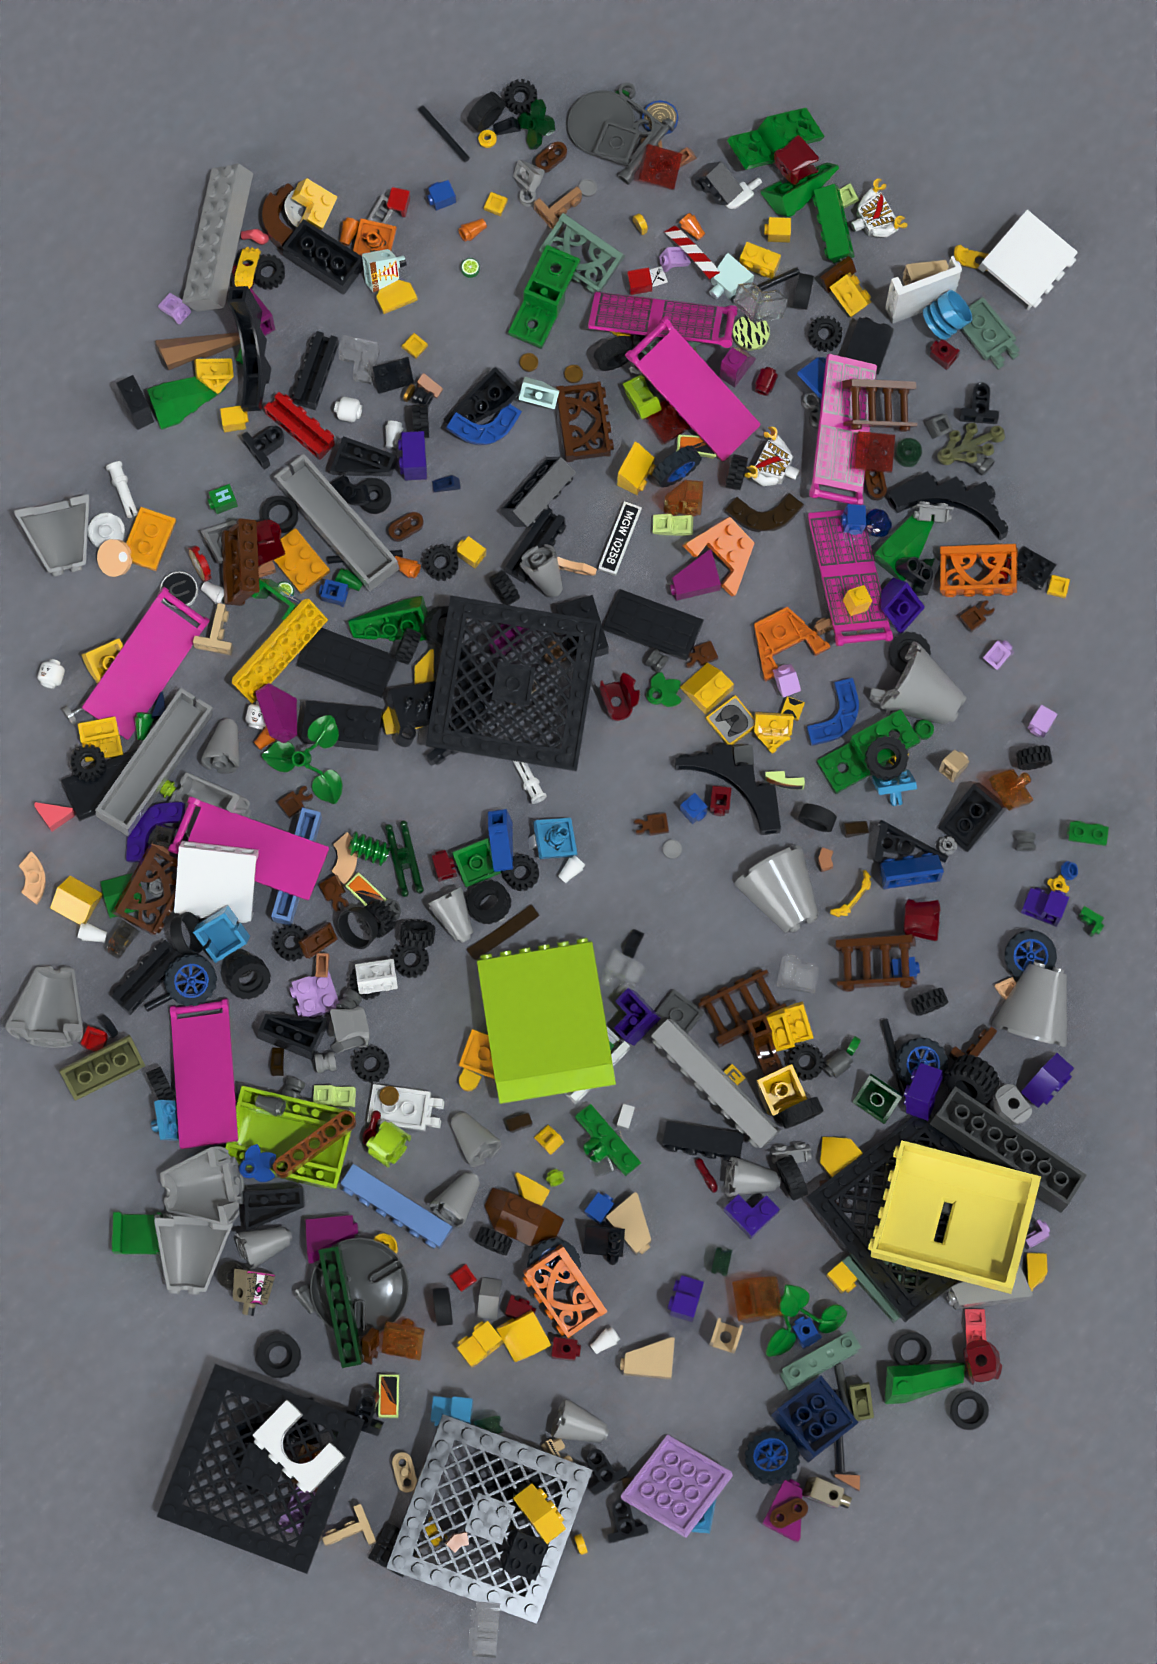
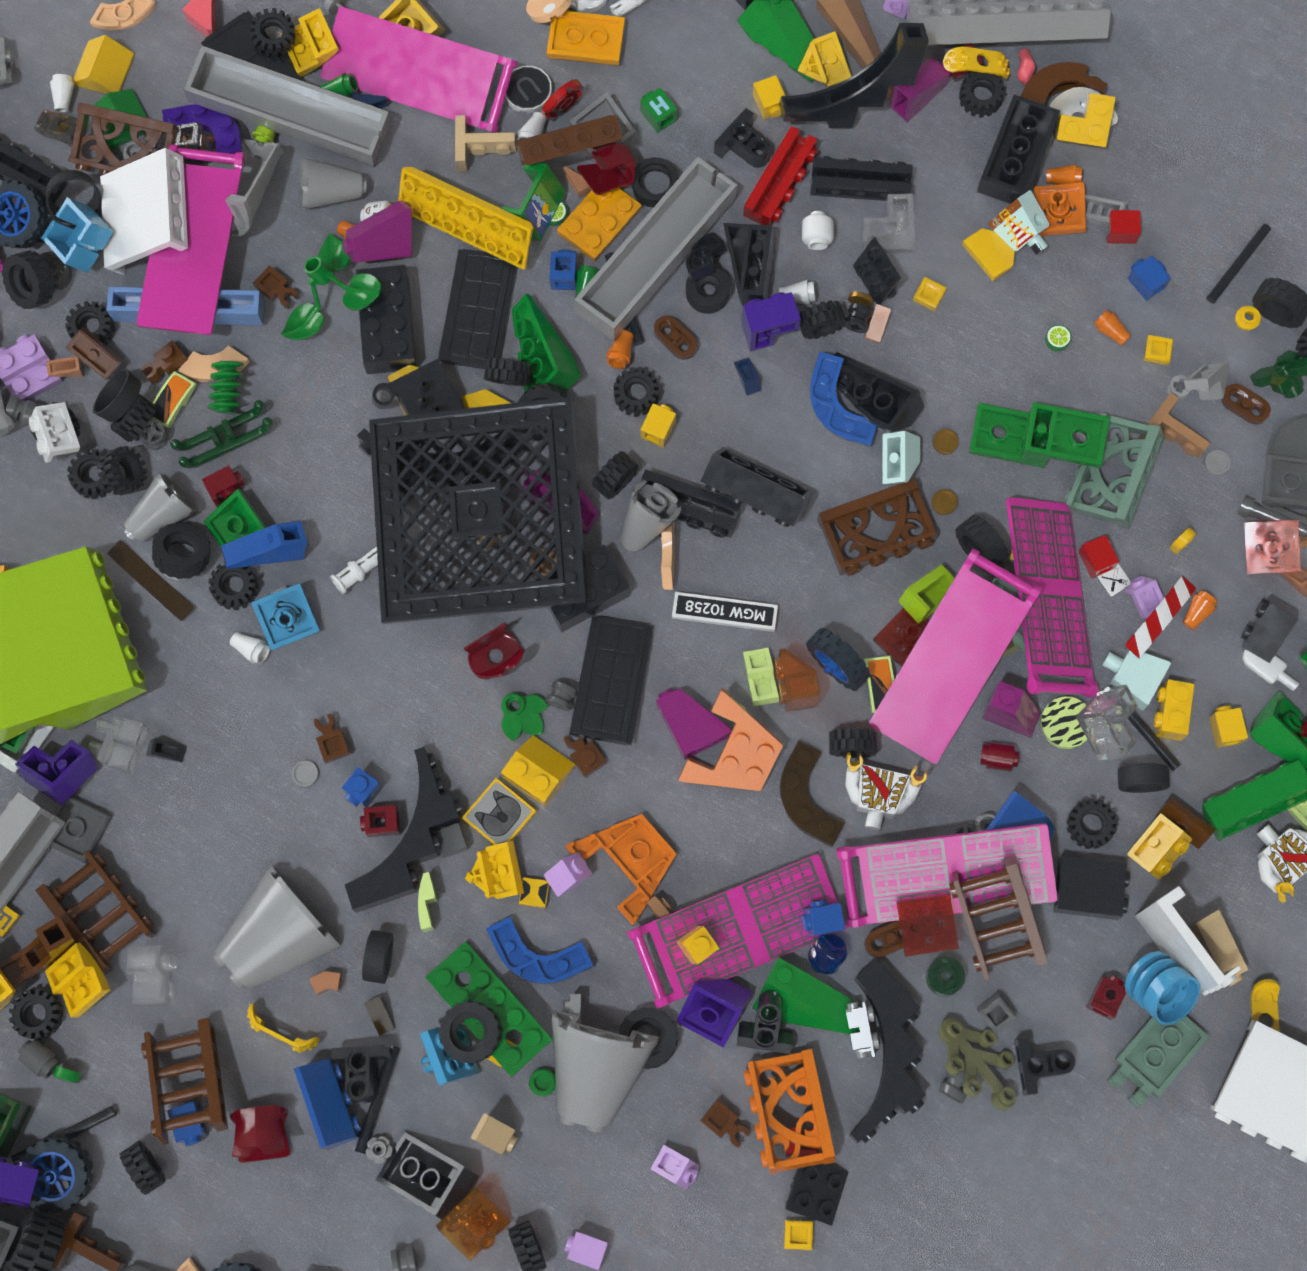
camera: 80 degrees right, 0 degrees up
(507, 126) = (1273, 339): black piece -> none
(636, 469) = (823, 607): yellow slope -> none

